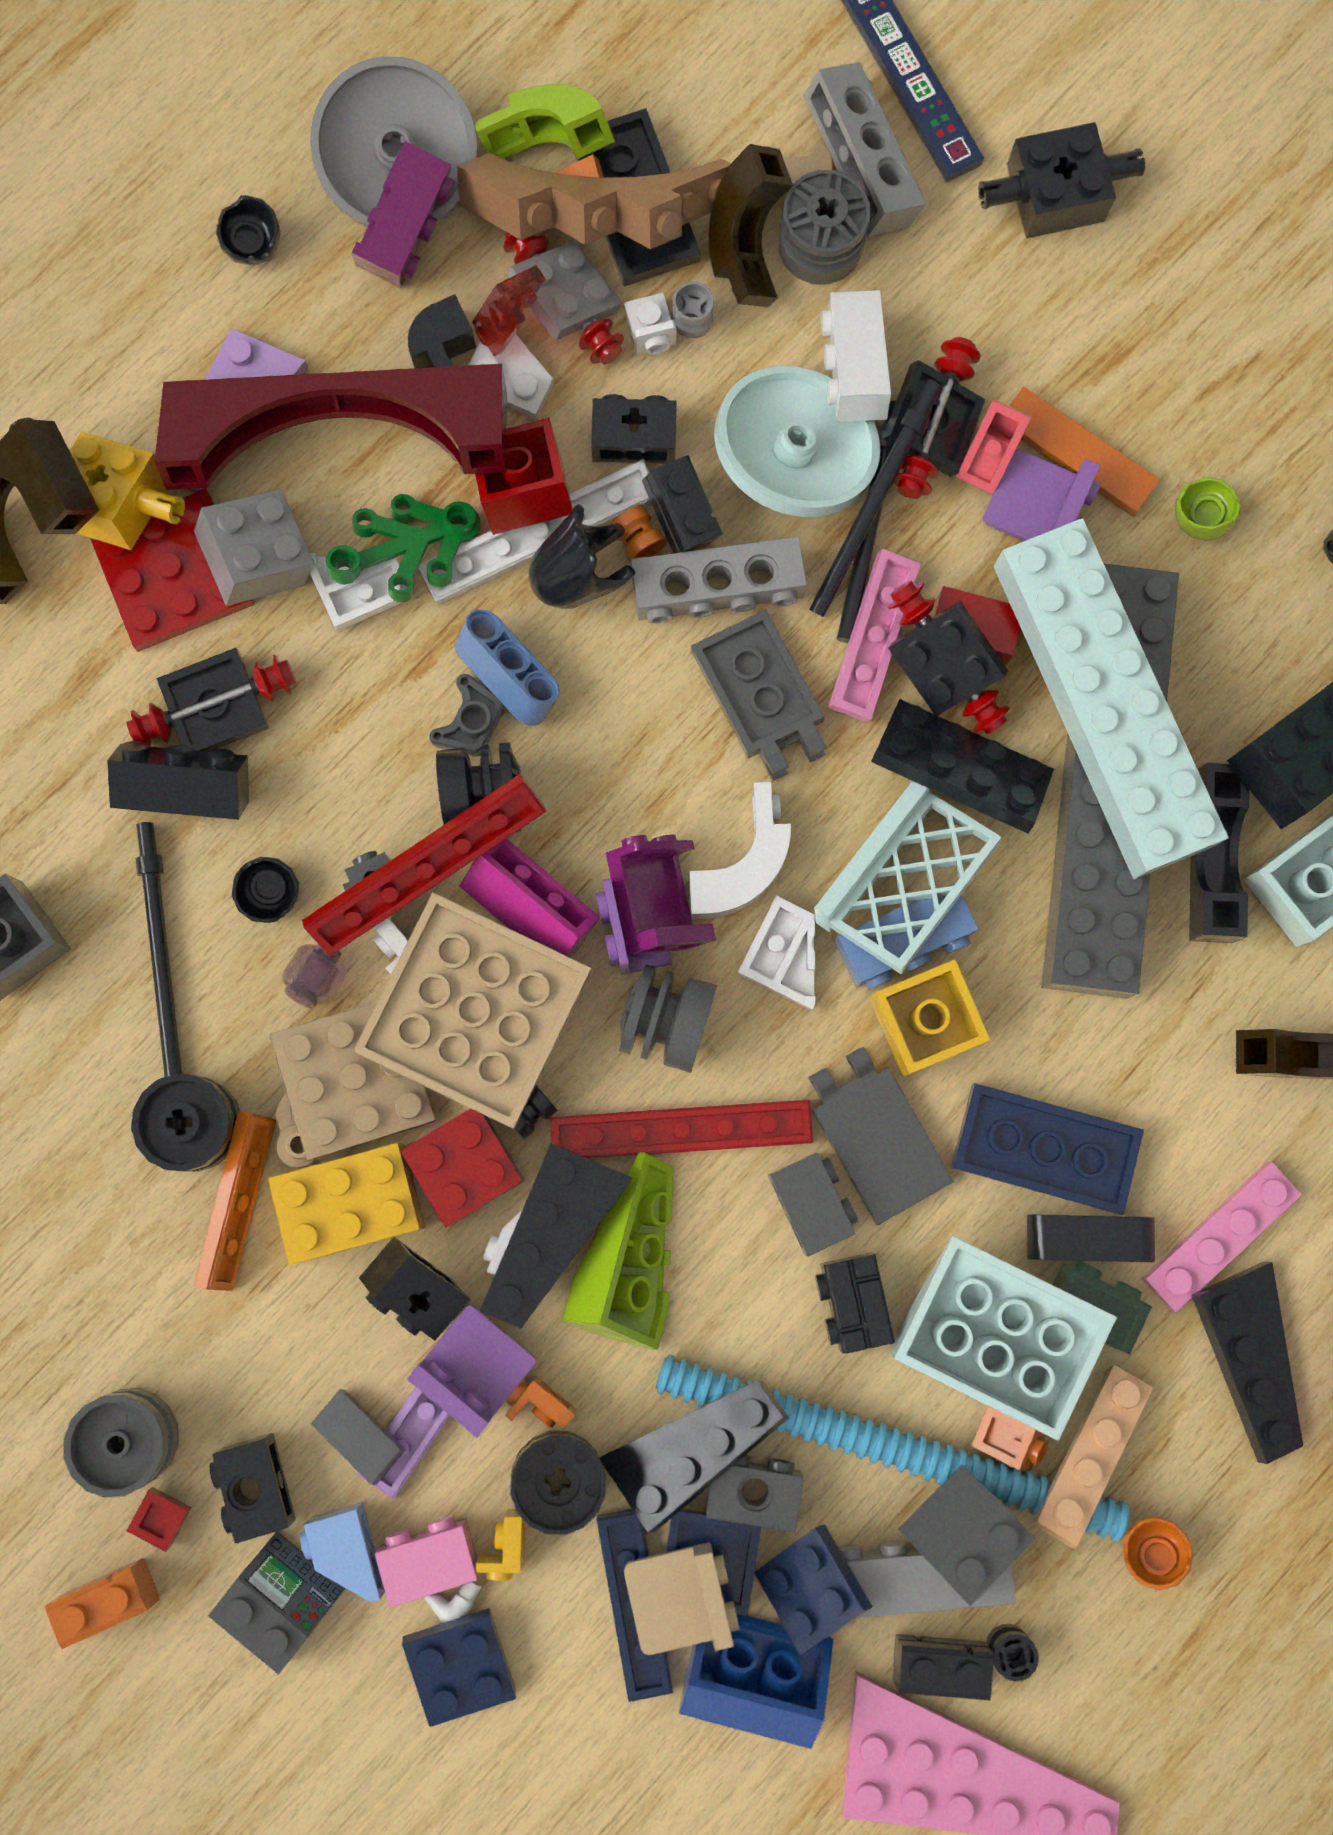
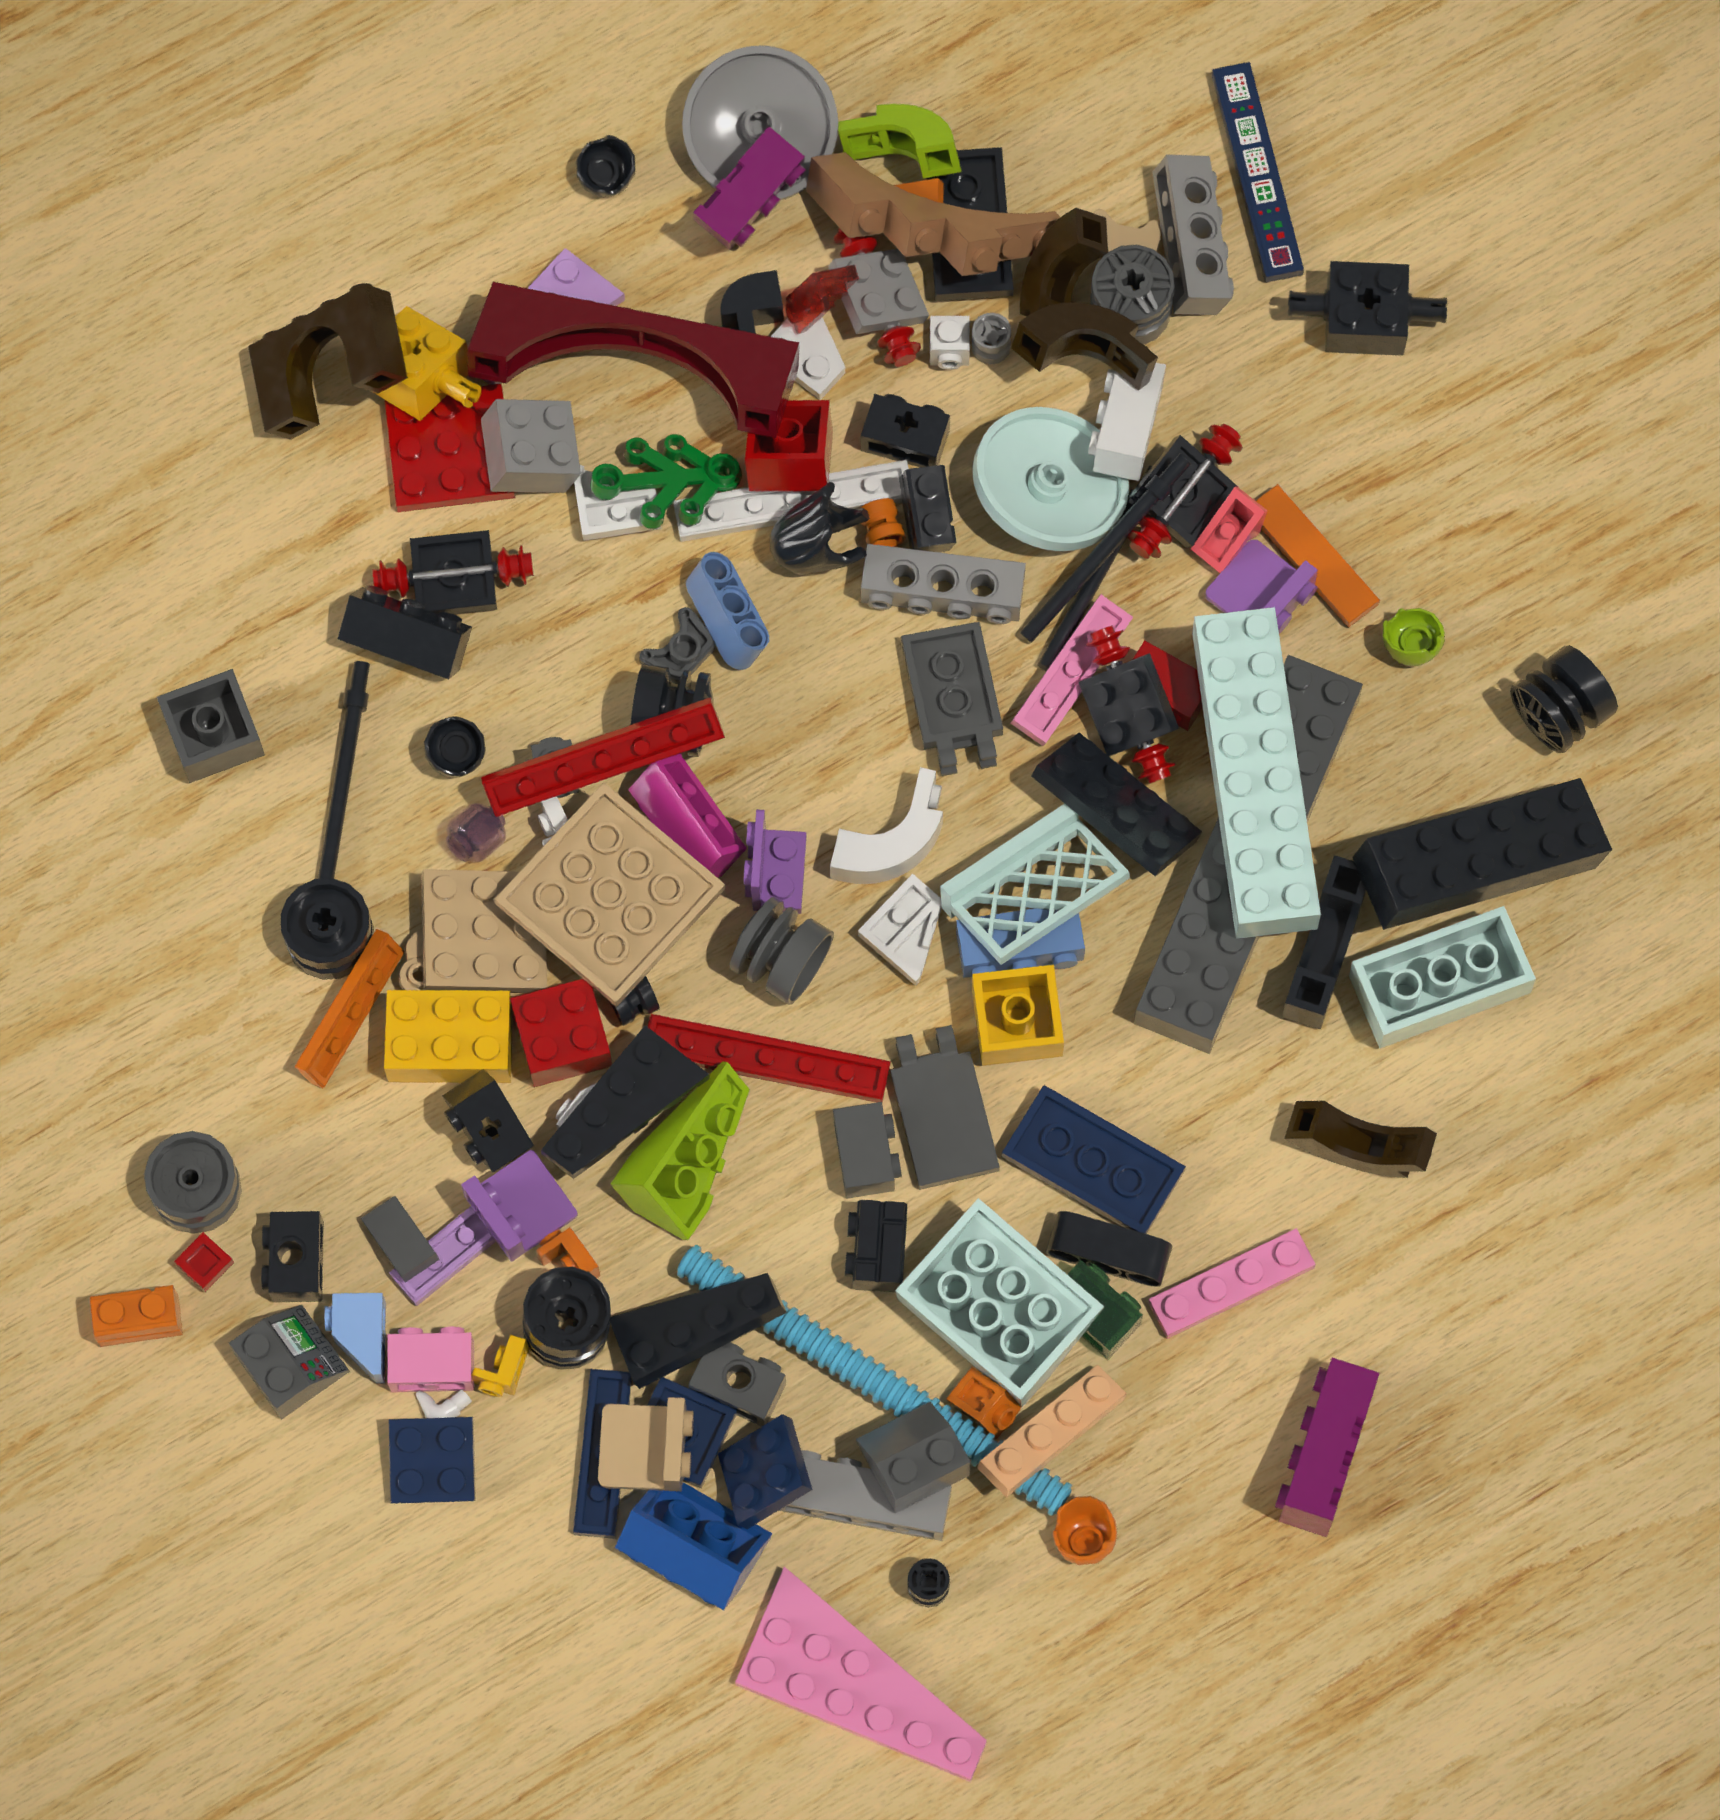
camera: 20 degrees right, 10 degrees down
(653, 896) = (801, 842): magenta panel -> none
(796, 275) = (1085, 331): none -> dark brown arch
(943, 1667) = (861, 1575): black brick -> none
(1251, 1349) = (1226, 1382): black wing -> none

